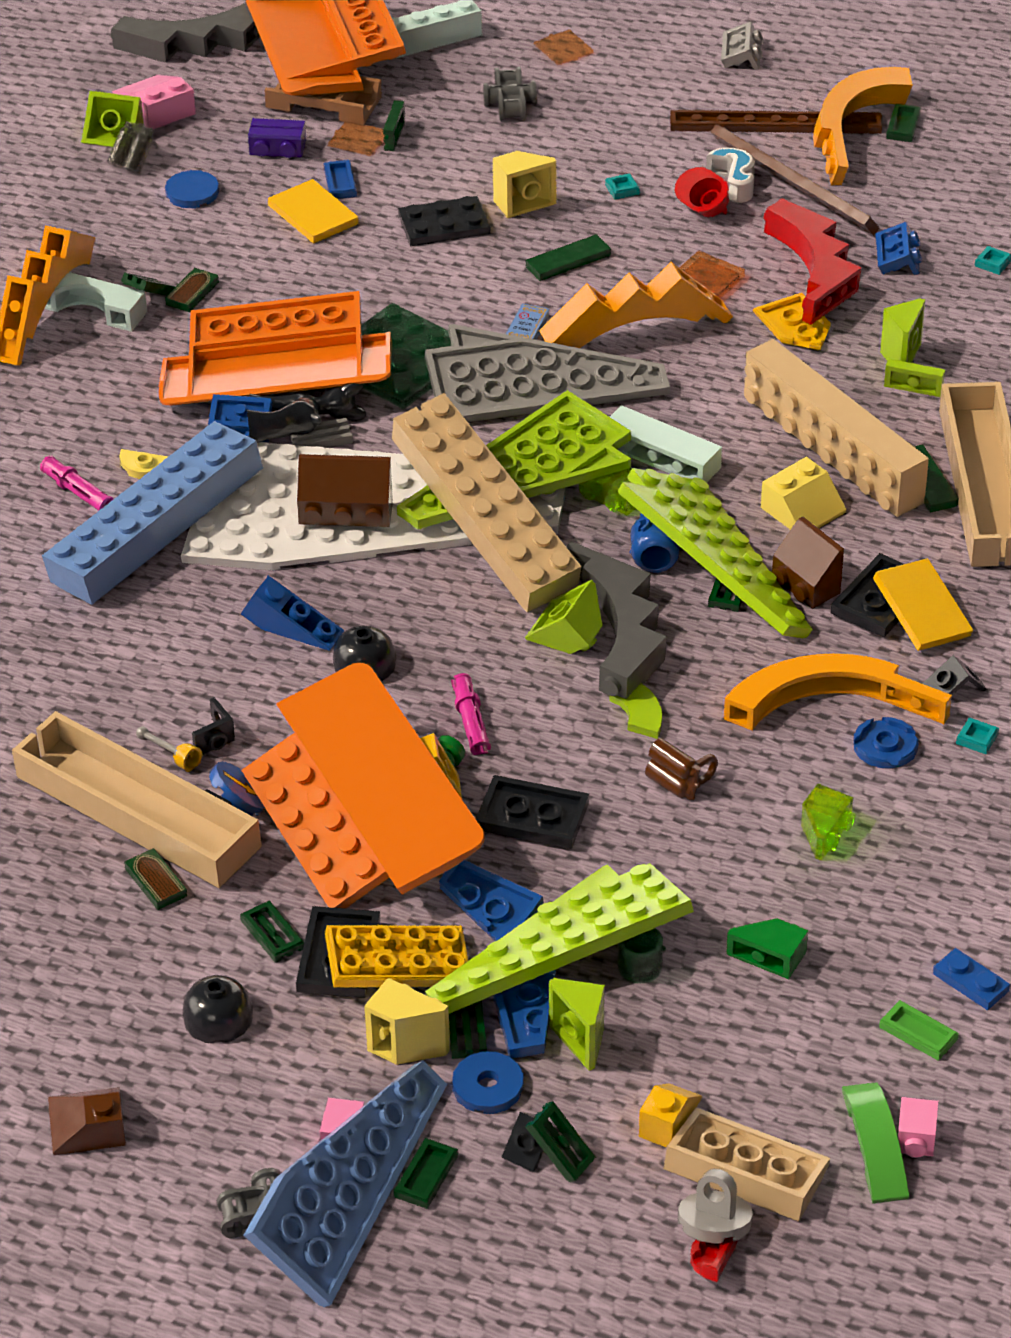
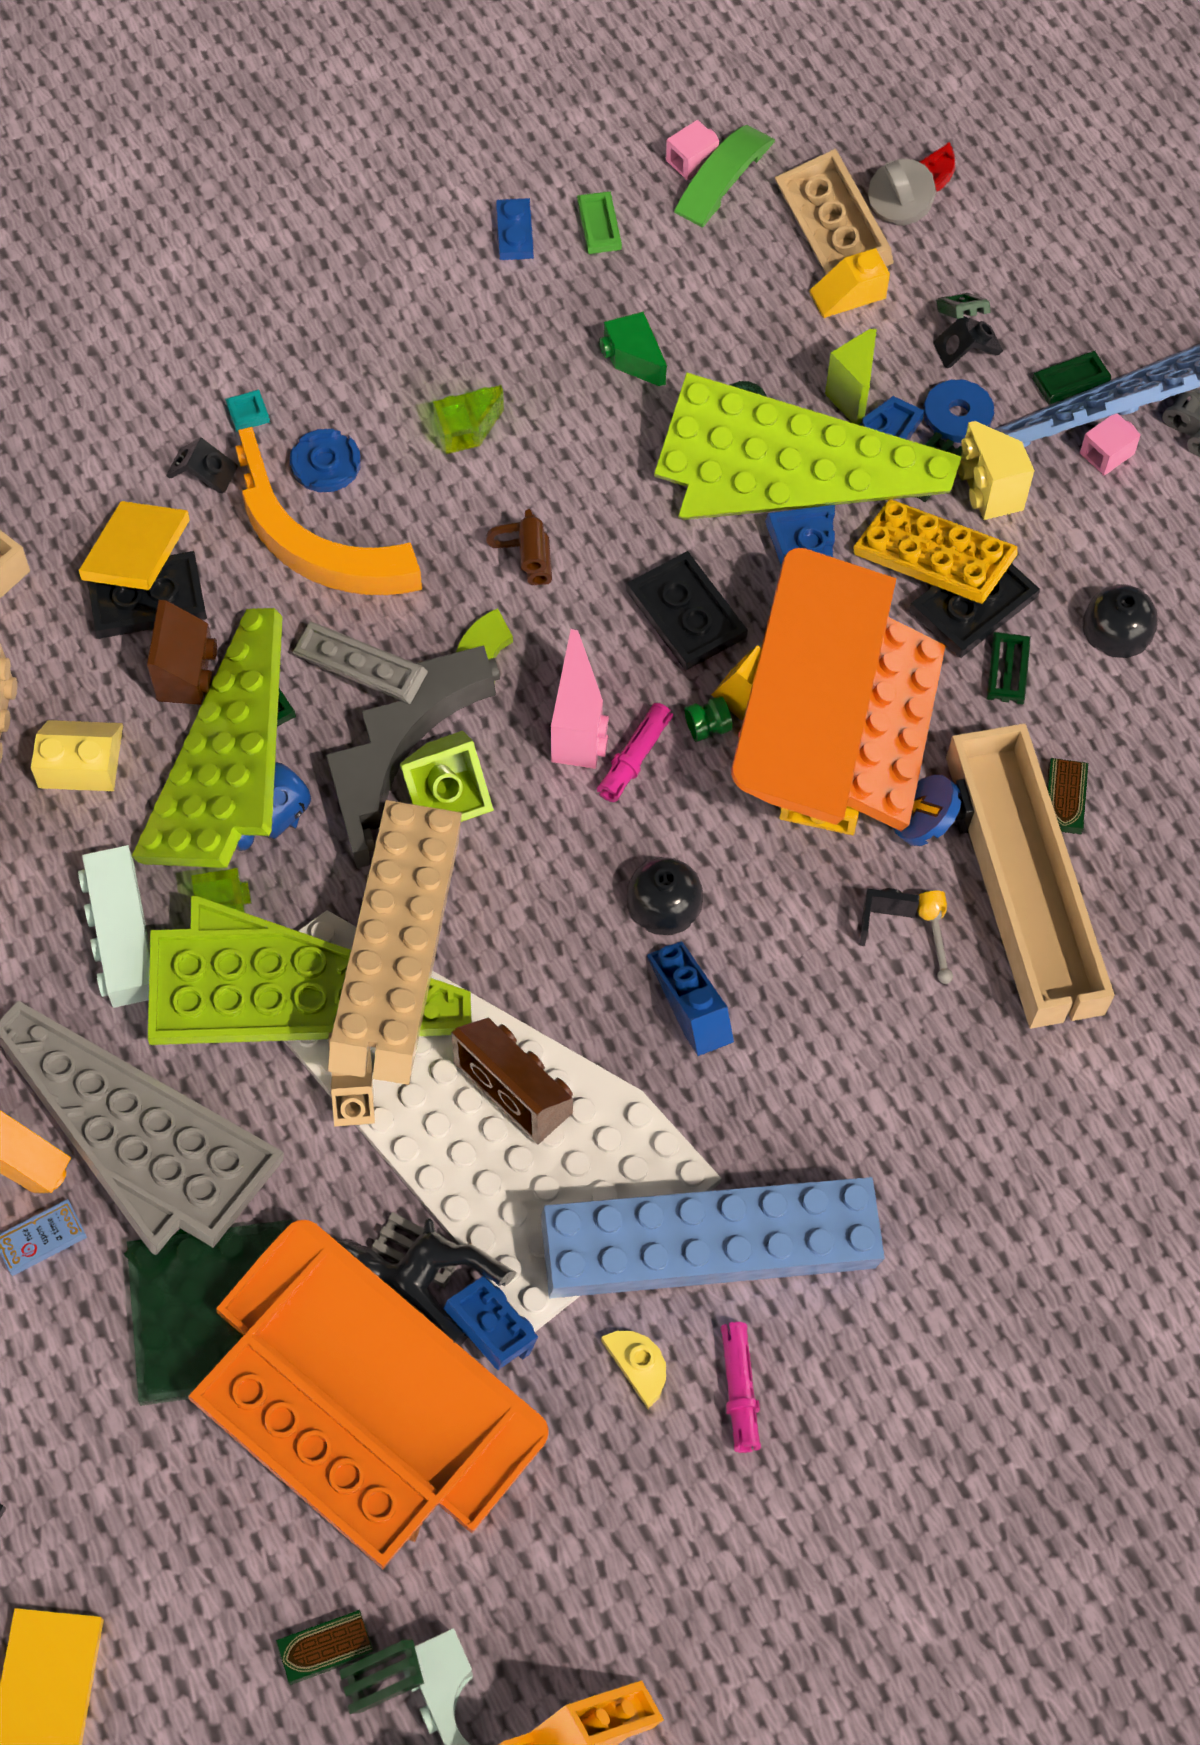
camera: 140 degrees left, 20 degrees up
(529, 693) = (578, 716): none -> bright pink slope
(696, 631) = (360, 662): none -> light grey tile

